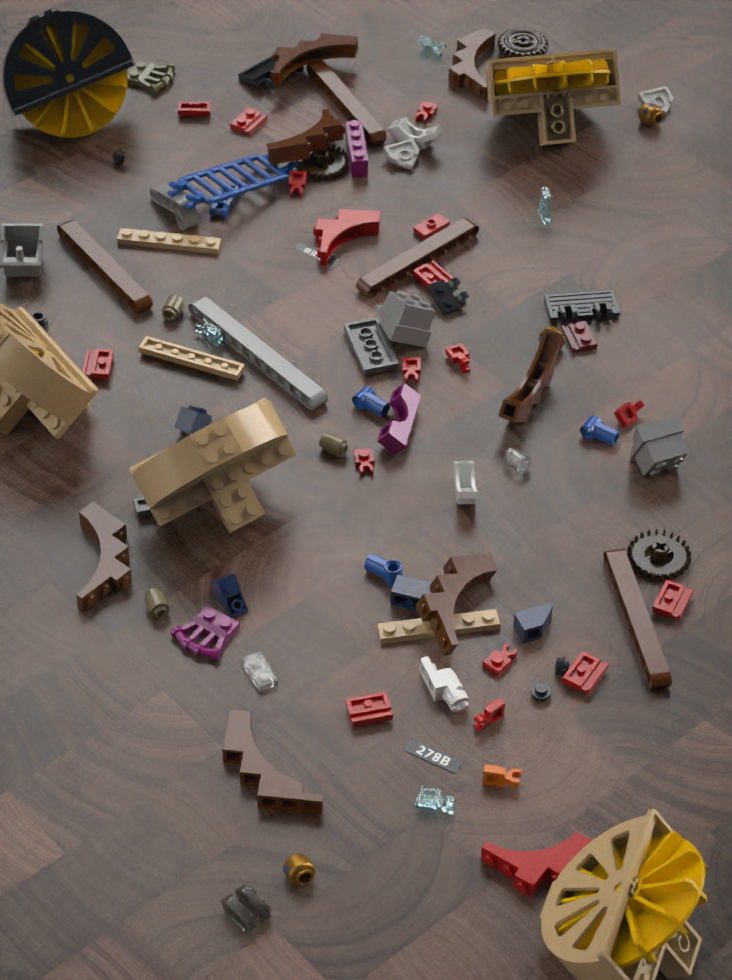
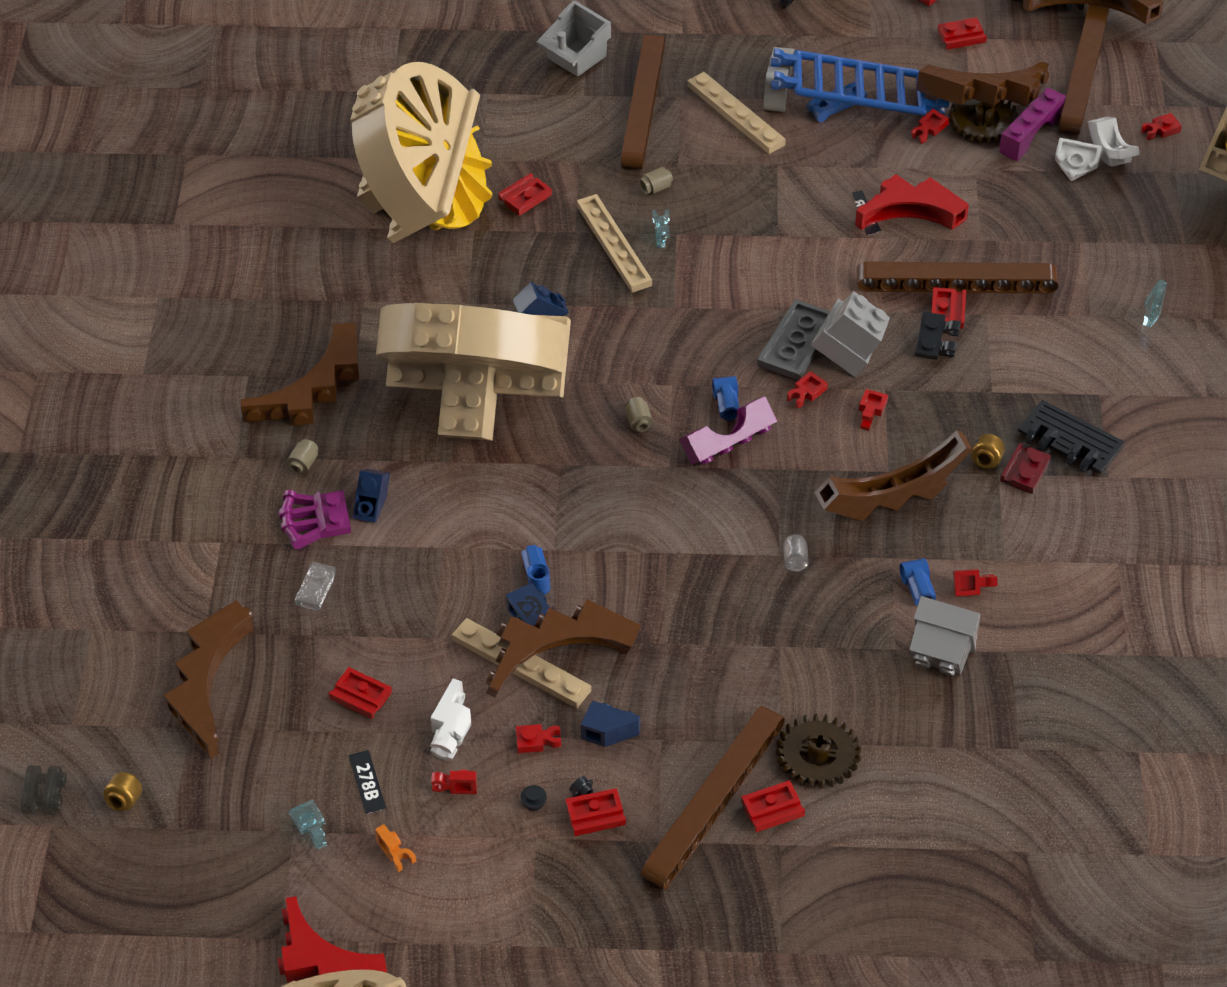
camera: 45 degrees right, 5 degrees up
(40, 317) = (525, 118): black plate -> none
(260, 354) = (680, 278): light grey beam -> none
(364, 460) = (652, 449): plate -> none
(431, 226) = (1014, 253): plate -> none
(465, 482) = (713, 540): white arch -> none

